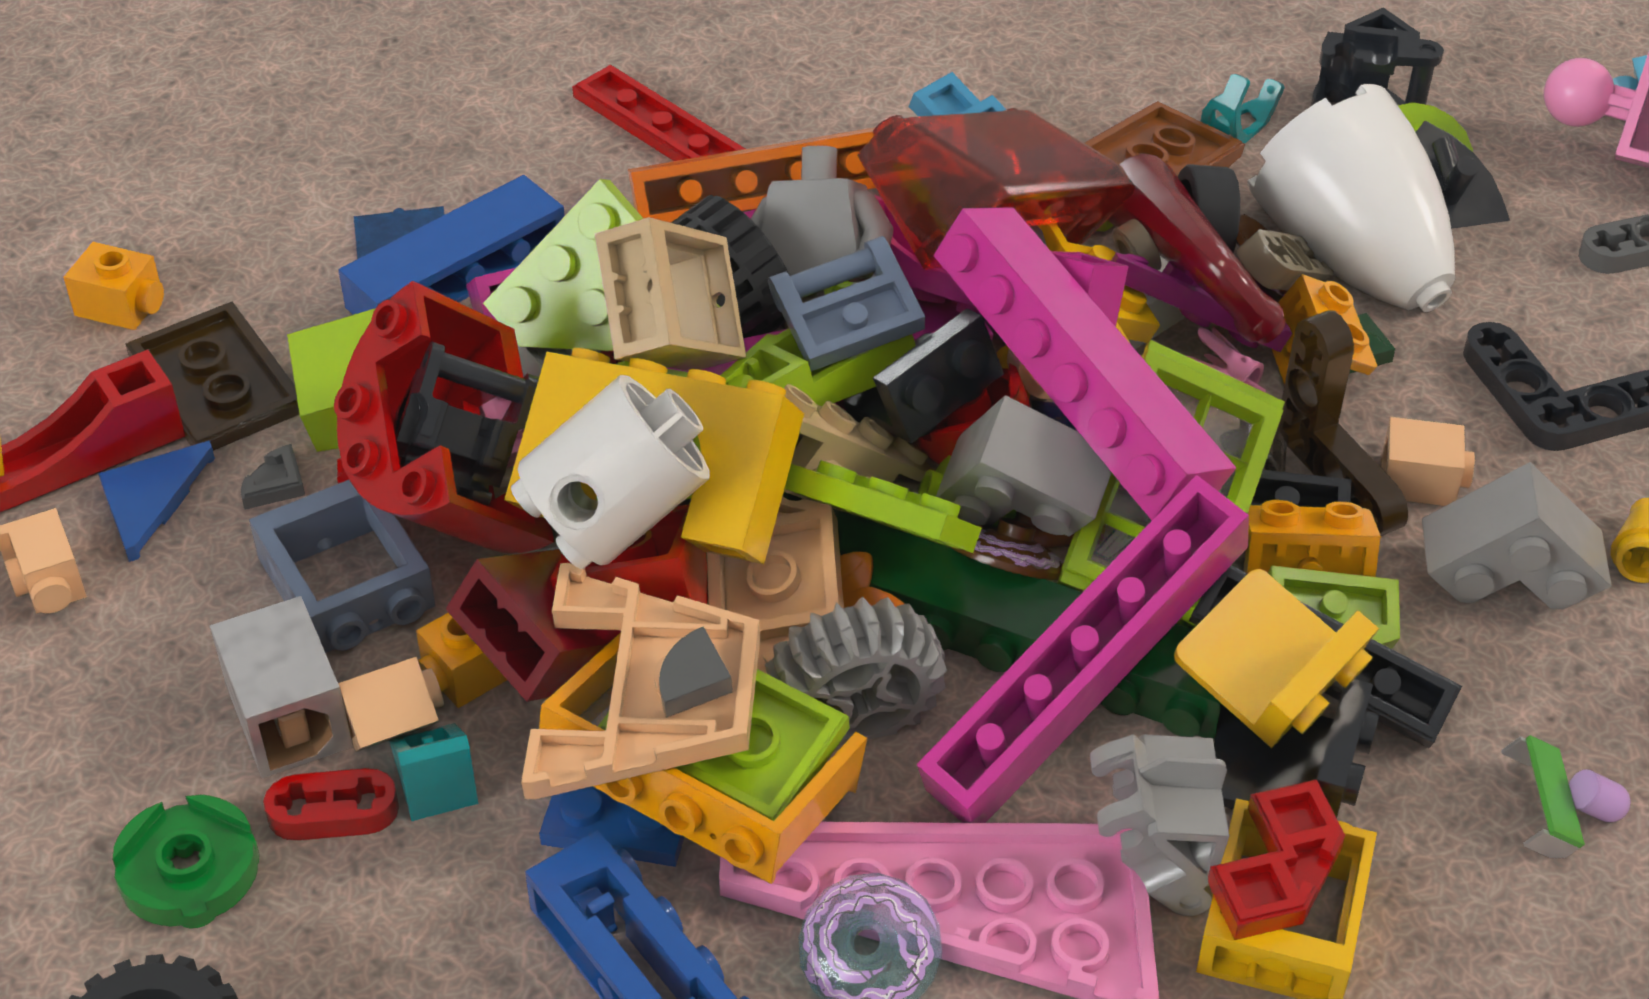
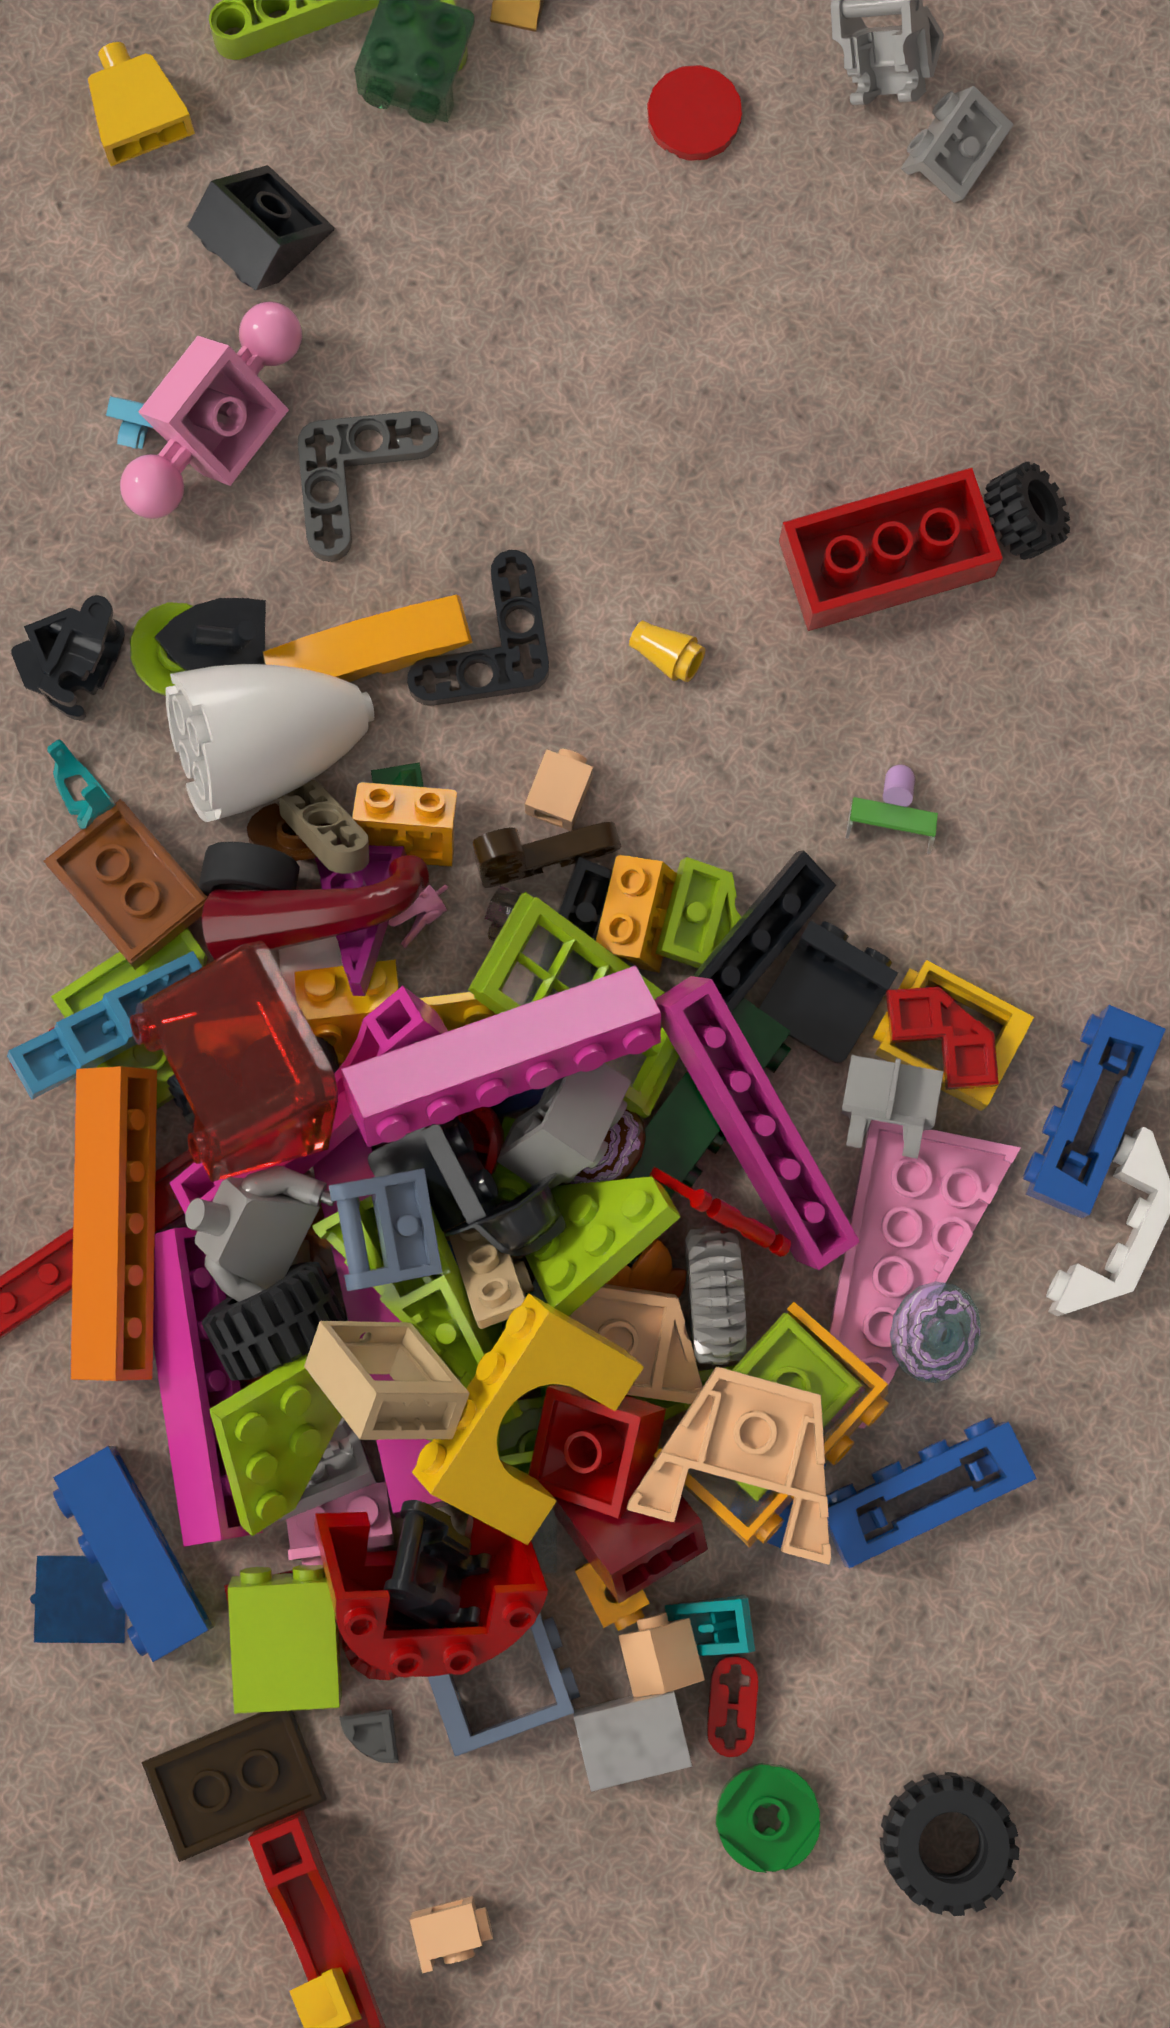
camera: 80 degrees left, 35 degrees up
(114, 286) = (108, 1869): light orange brick -> none
(151, 491) = (369, 1843): blue tile -> none
(633, 456) = (582, 1459): white cylinder -> none
(692, 674) = (768, 1426): dark grey tile -> none
(896, 434) = (522, 1223): none -> black piece
(961, 641) = (727, 1215): none -> red piece
(1135, 240) = (302, 954): dark tan tile -> none
(1272, 656) = (782, 983): yellow bracket -> none
(1514, 533) = (675, 752): light grey brick -> none
(1518, 294) = (379, 641): none -> light orange slope

